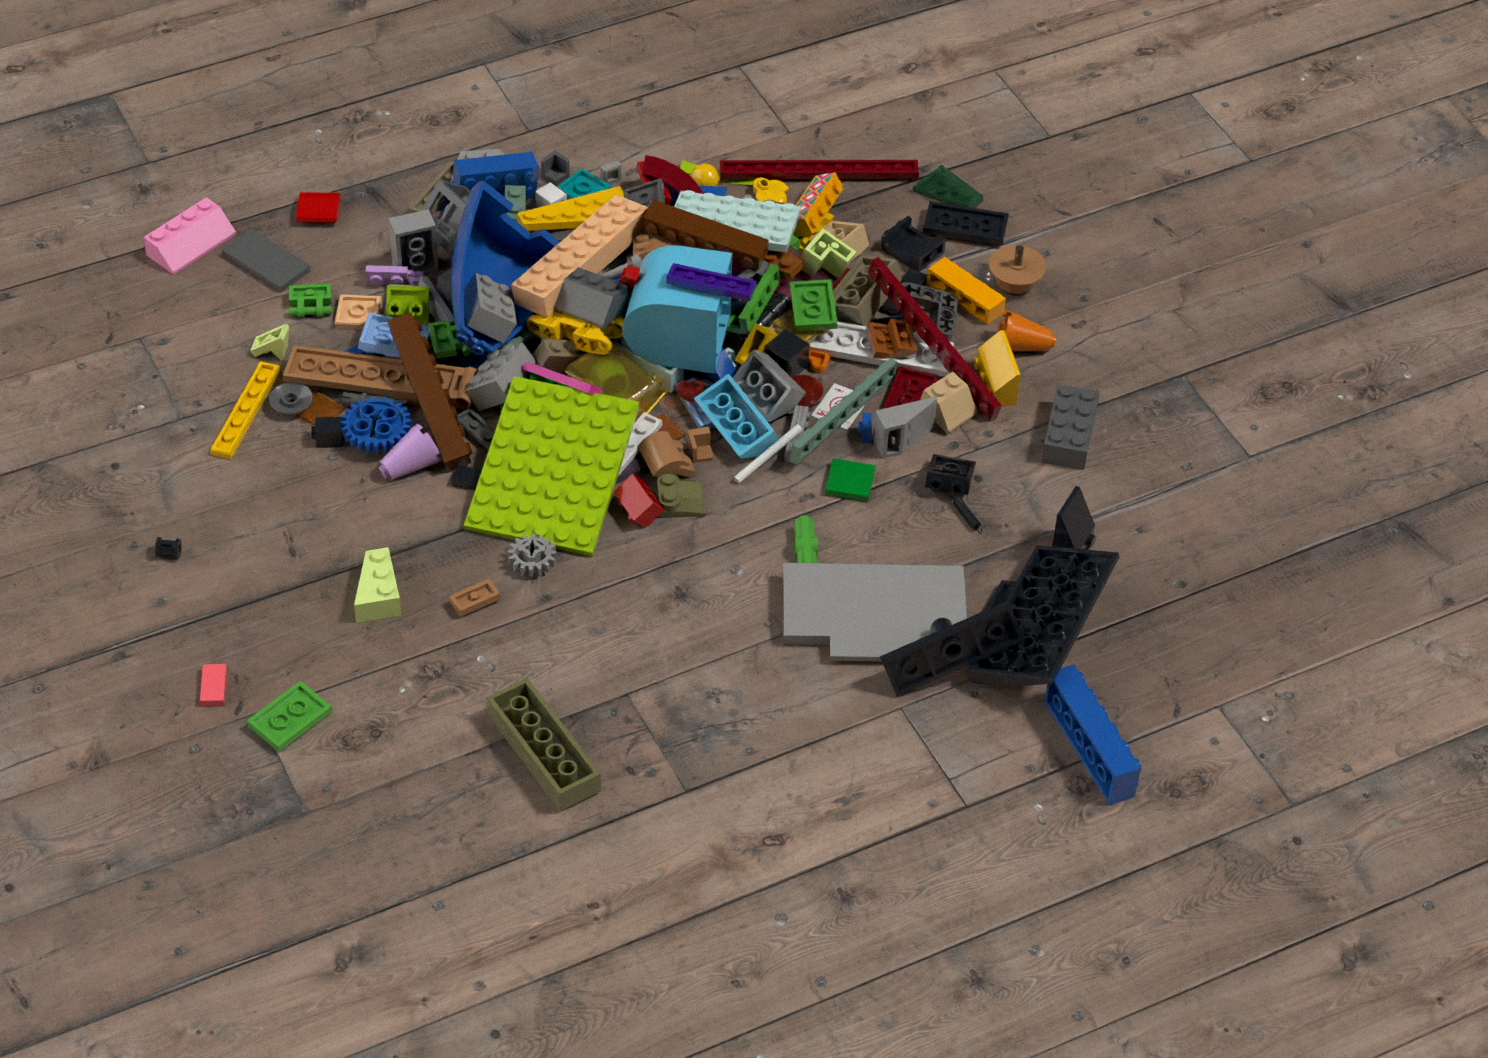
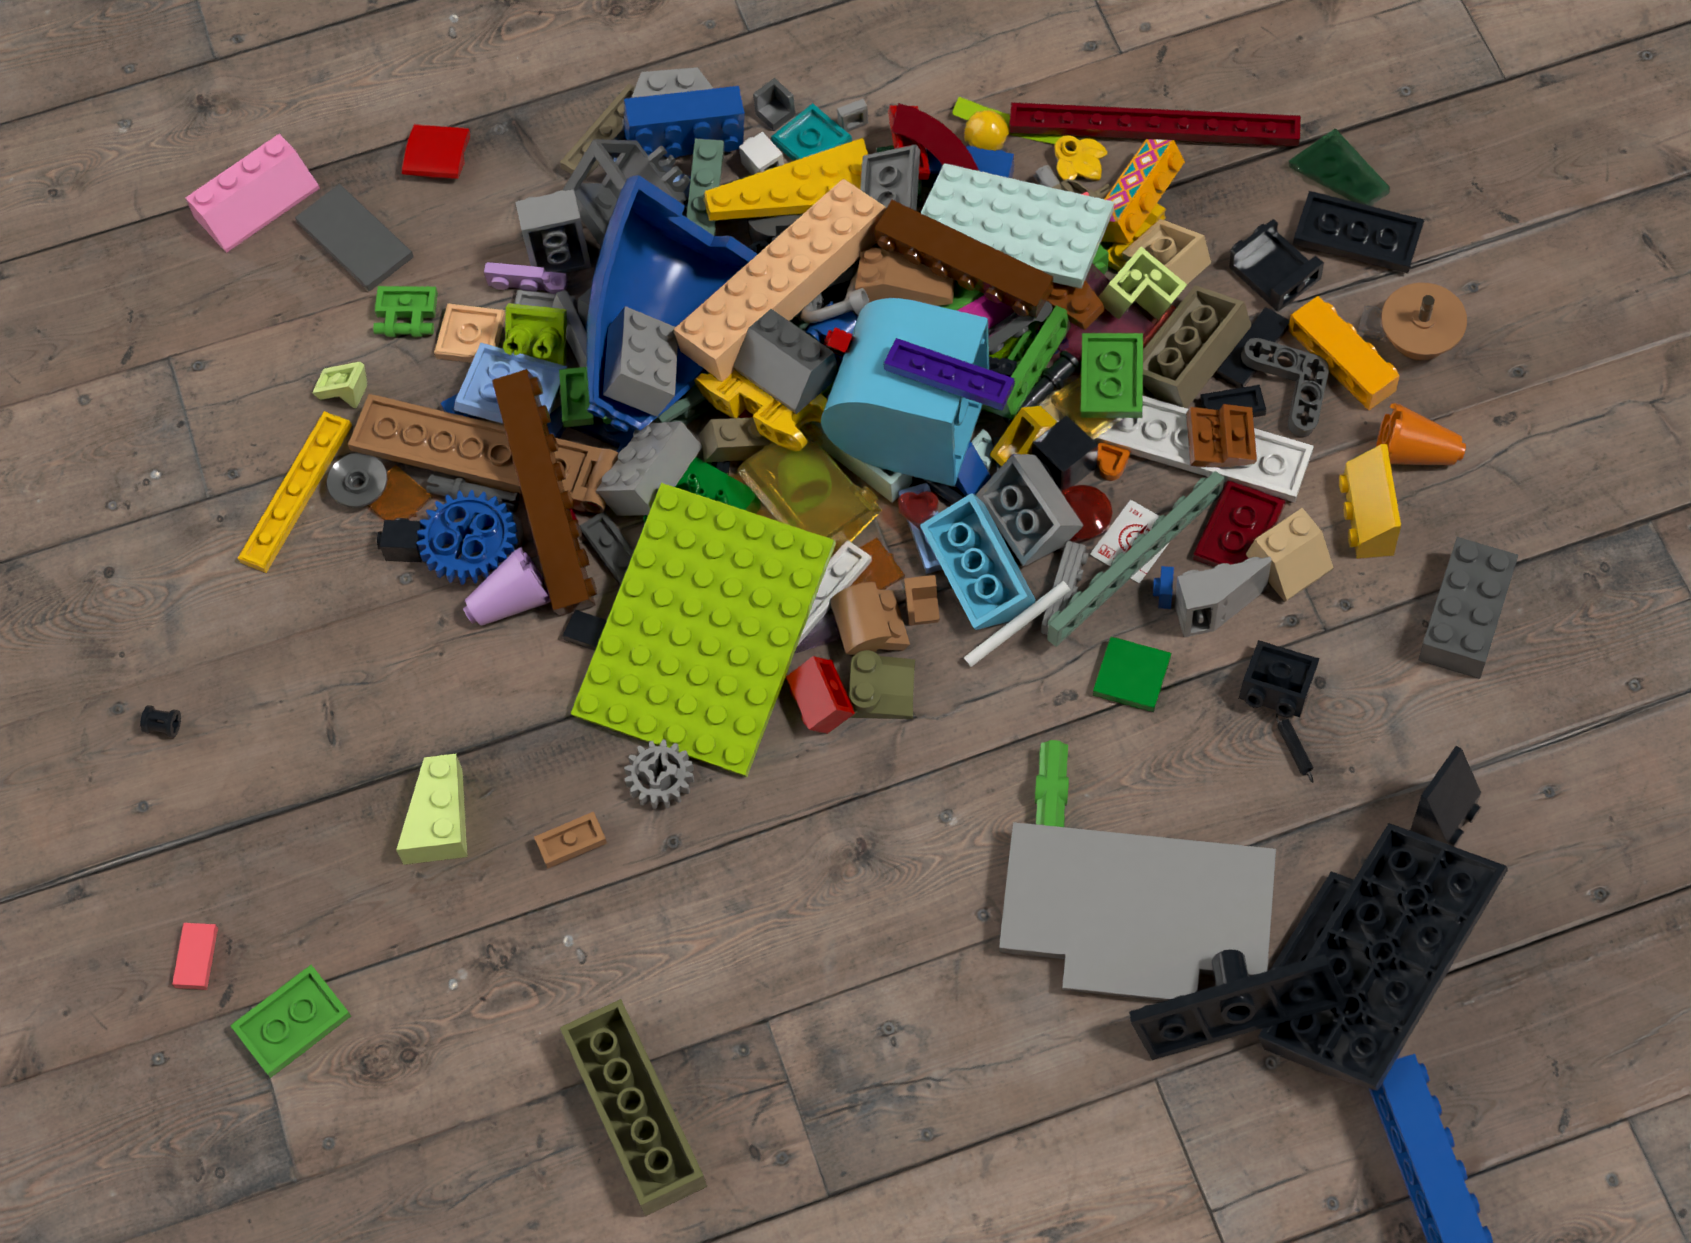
camera: 15 degrees right, 15 degrees up
(561, 378) = (732, 488): dark pink tile -> none
(933, 337) = (1287, 454): dark red plate -> none

